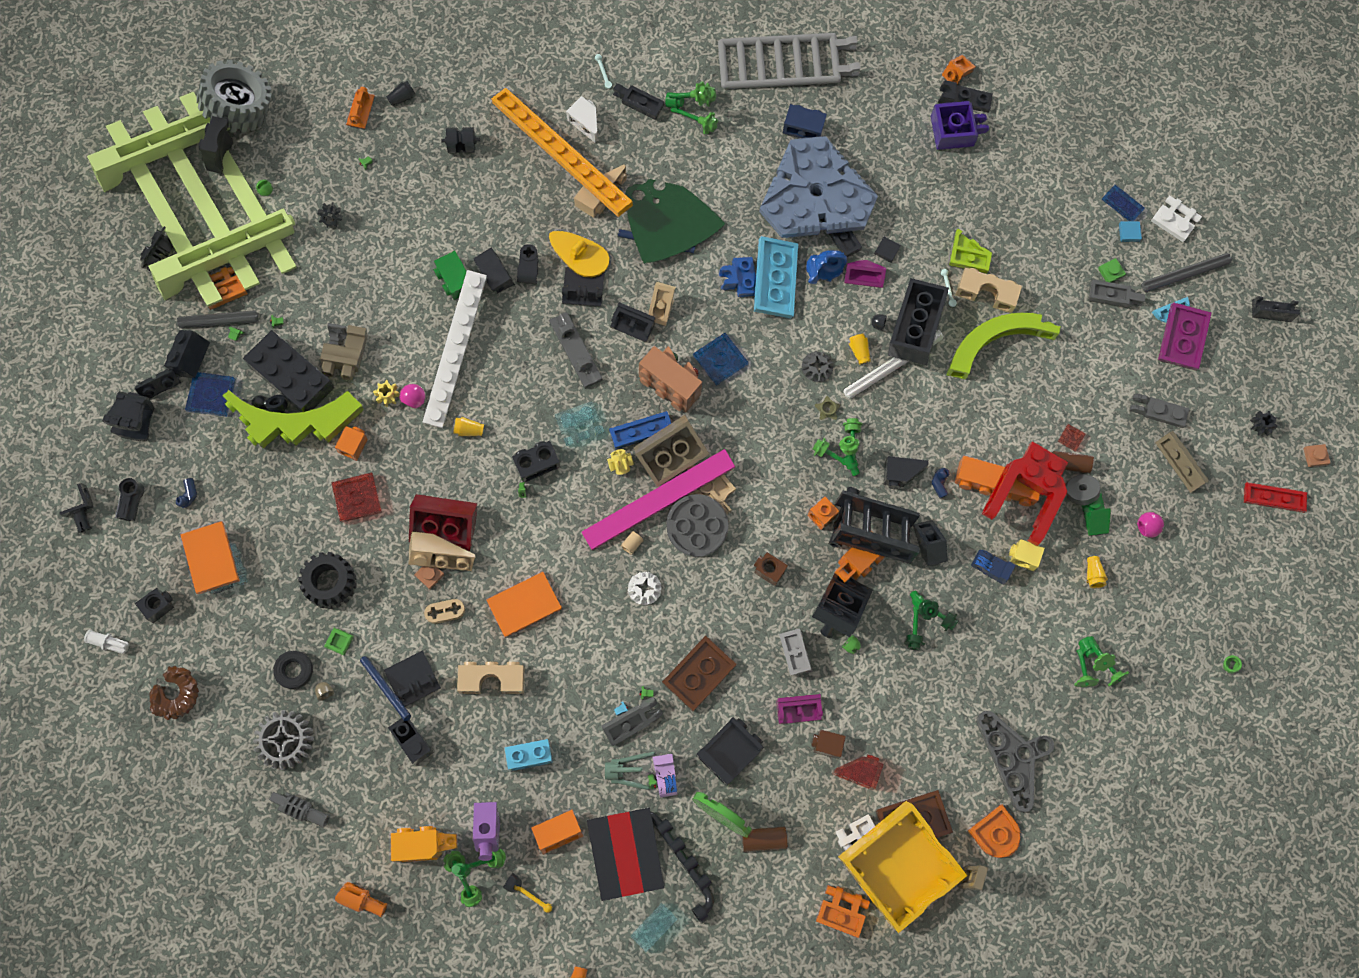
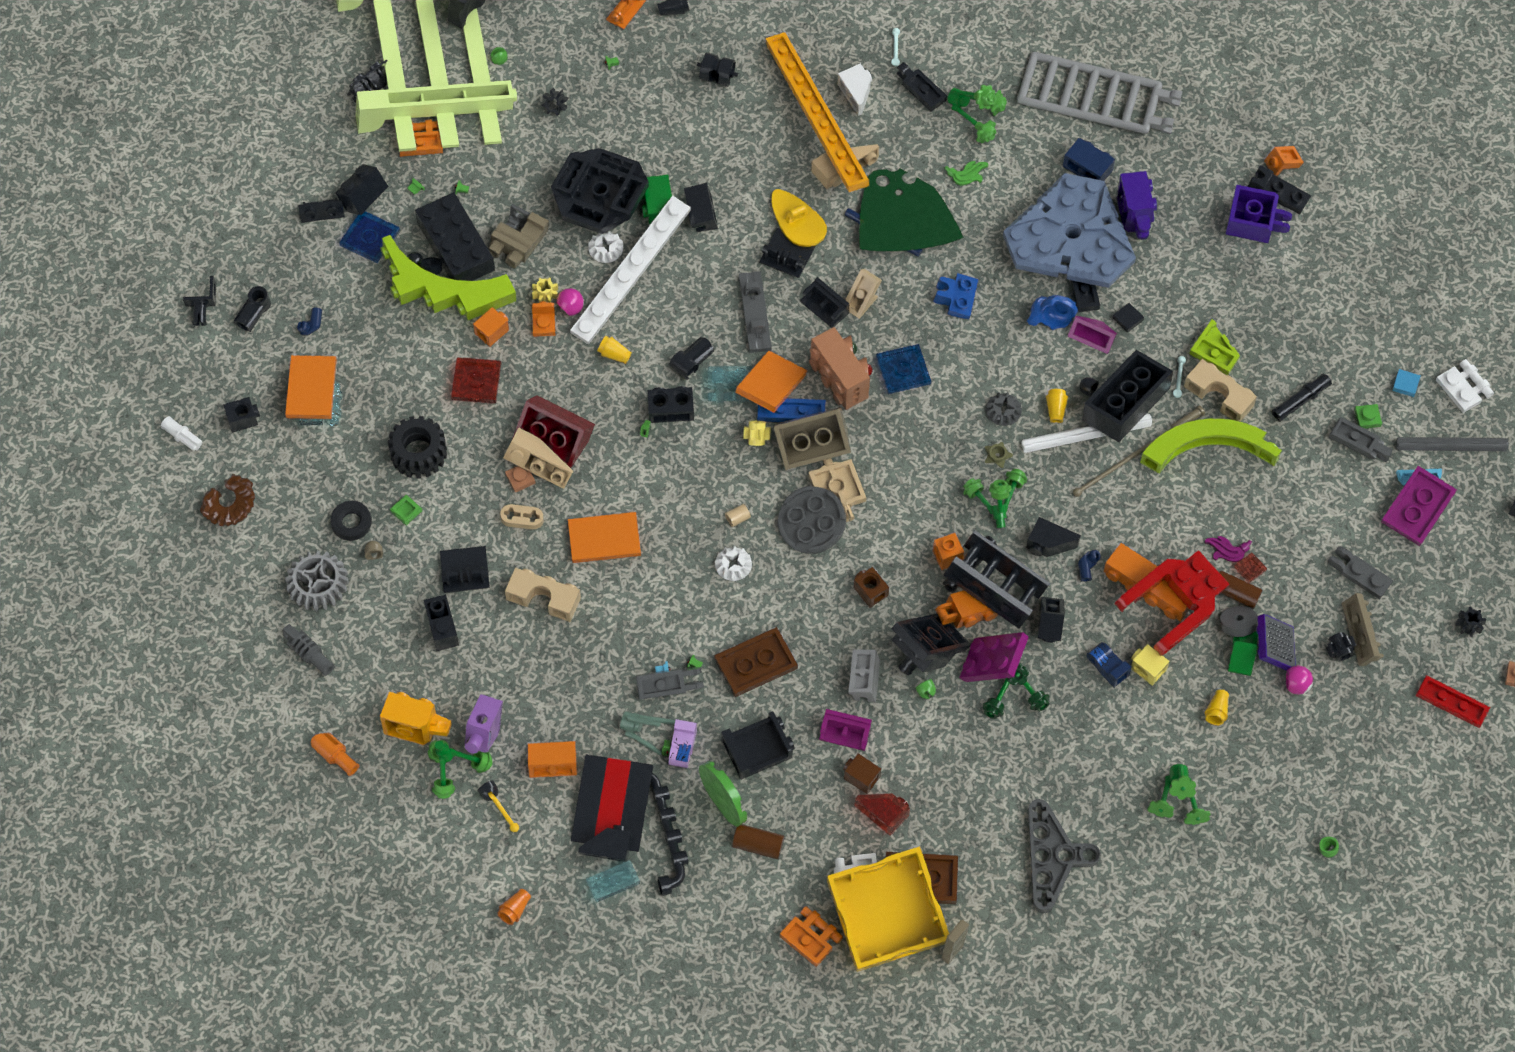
camera: 25 degrees right, 10 degrees down
(130, 416) = (284, 231): black piece -> none
(217, 319) = (404, 167): dark grey axle -> none
(387, 272) = (595, 172): none -> black piece
(394, 700) = (435, 566): dark blue bar -> none
(395, 420) = (543, 319): none -> orange bracket
(421, 341) = (600, 253): none -> white gear
(528, 267) = (738, 213): black piece -> none
(528, 755) = (552, 677): medium azure brick -> none
(536, 414) = (689, 360): none -> black piece
(615, 410) = (771, 381): none -> orange tile
(638, 896) = (609, 844): none -> black slope
(658, 499) = (781, 481): dark pink tile -> none
(708, 165) = (969, 173): none -> bright green piece
(776, 277) = (994, 306): medium azure plate -> none
(859, 147) = (1136, 203): none -> dark purple hinge
(901, 599) = (994, 657): none -> magenta plate
(963, 333) = (1199, 411): none -> dark tan piece
(997, 833) = (1004, 921): orange tile -> none
(1045, 428) = (1226, 550): none -> magenta piece
(1052, 275) = (1308, 392): none -> black pin
(1121, 499) = (1276, 642): none -> tile
(1123, 203) = (1411, 352): clear blue tile -> none
(1172, 482) = (1341, 646): none -> black gear

